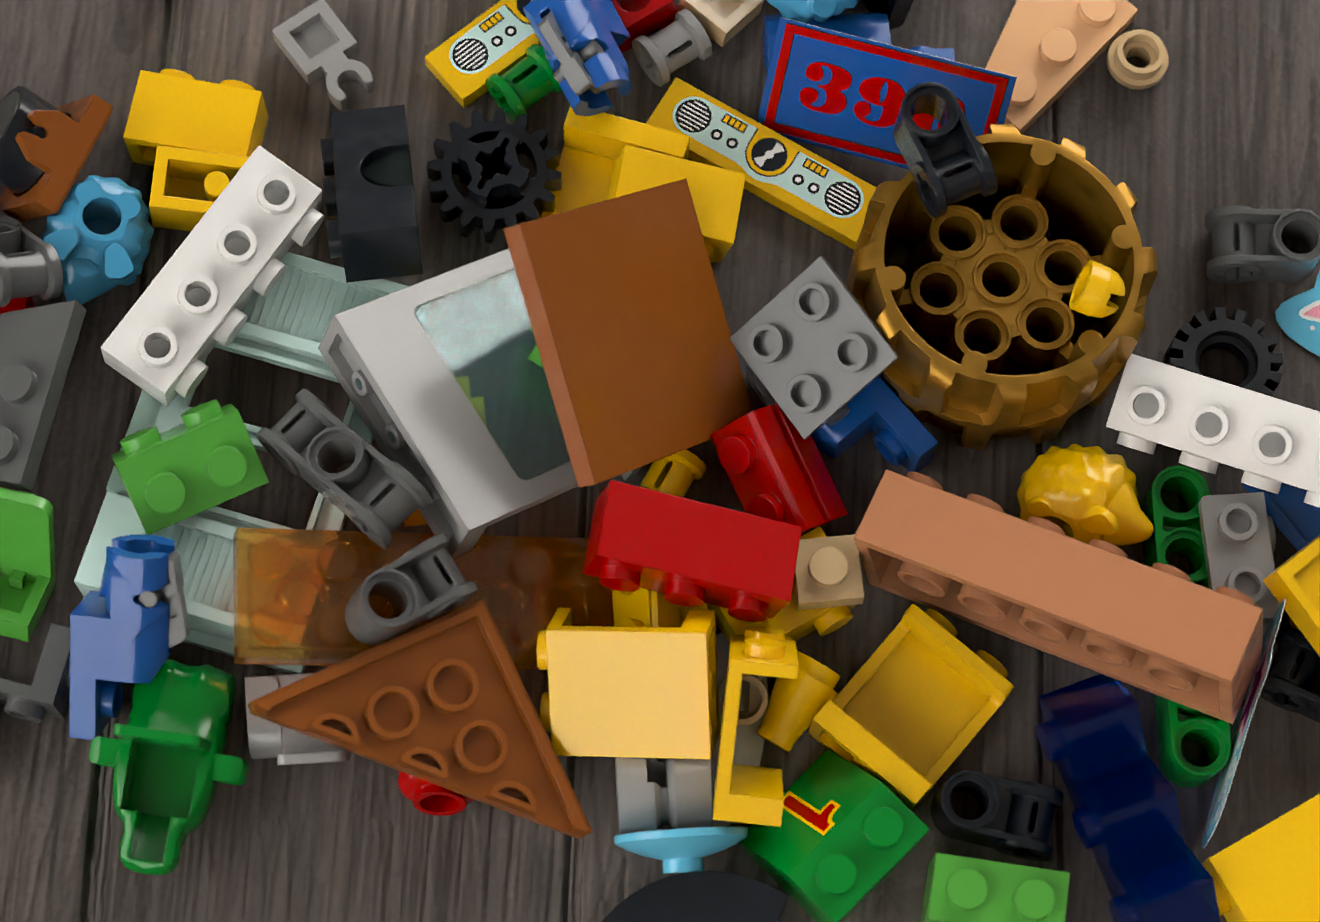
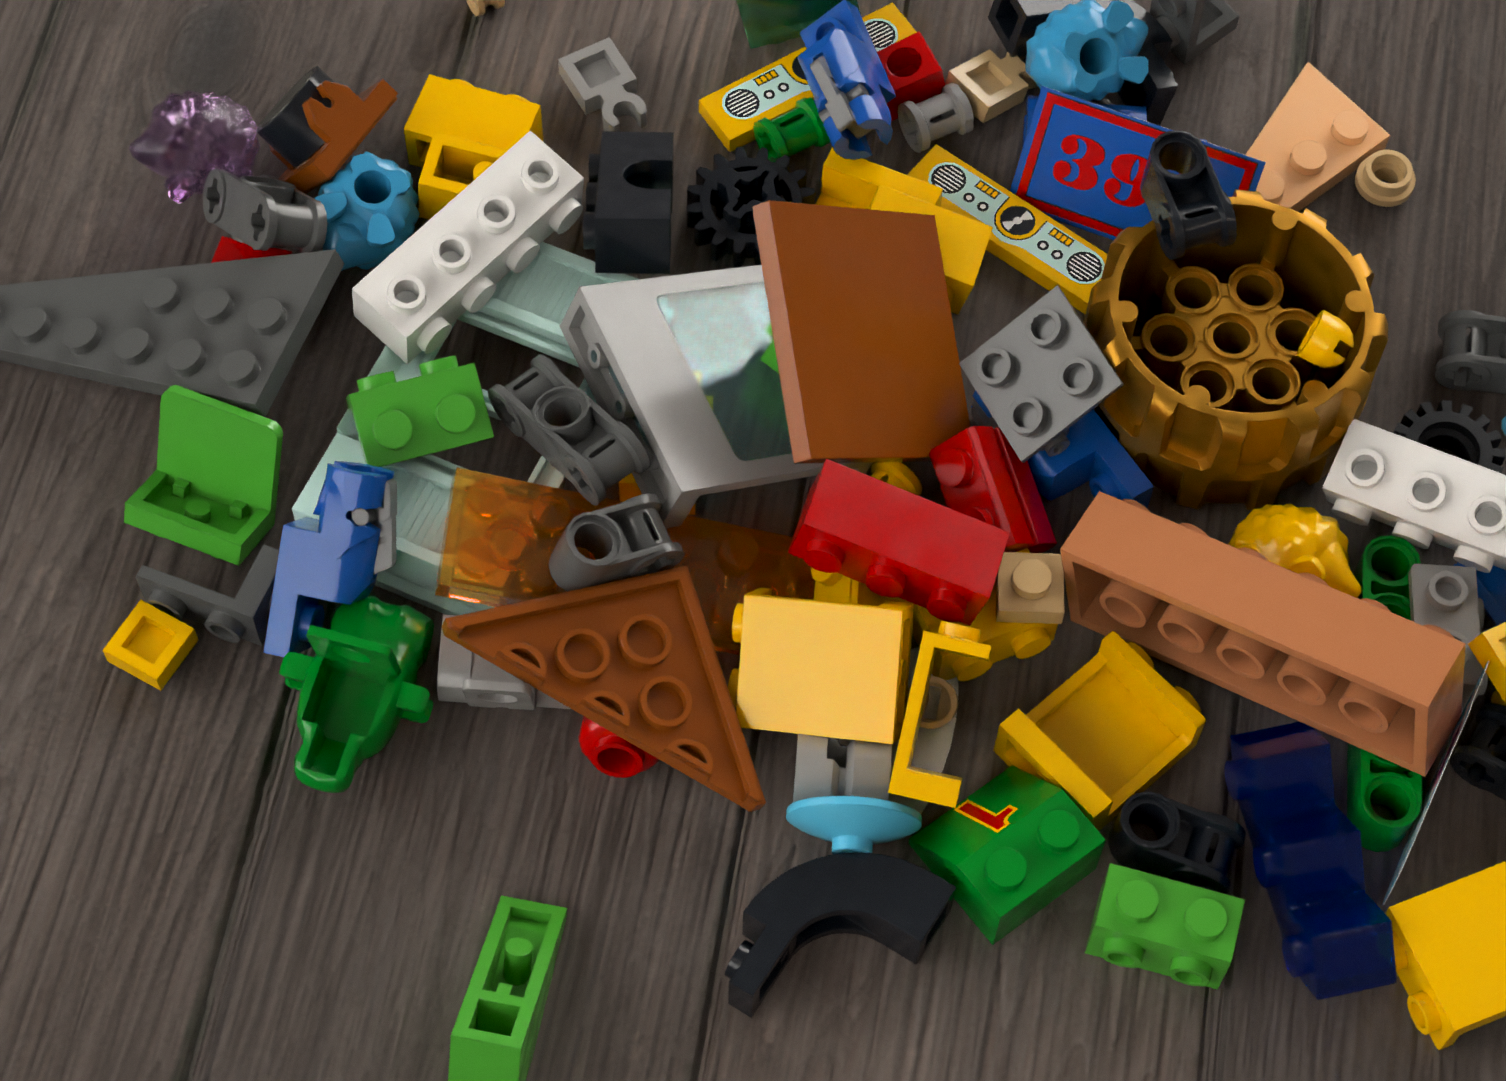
camera: 10 degrees right, 10 degrees down
(797, 702) = (985, 706): yellow cone -> none

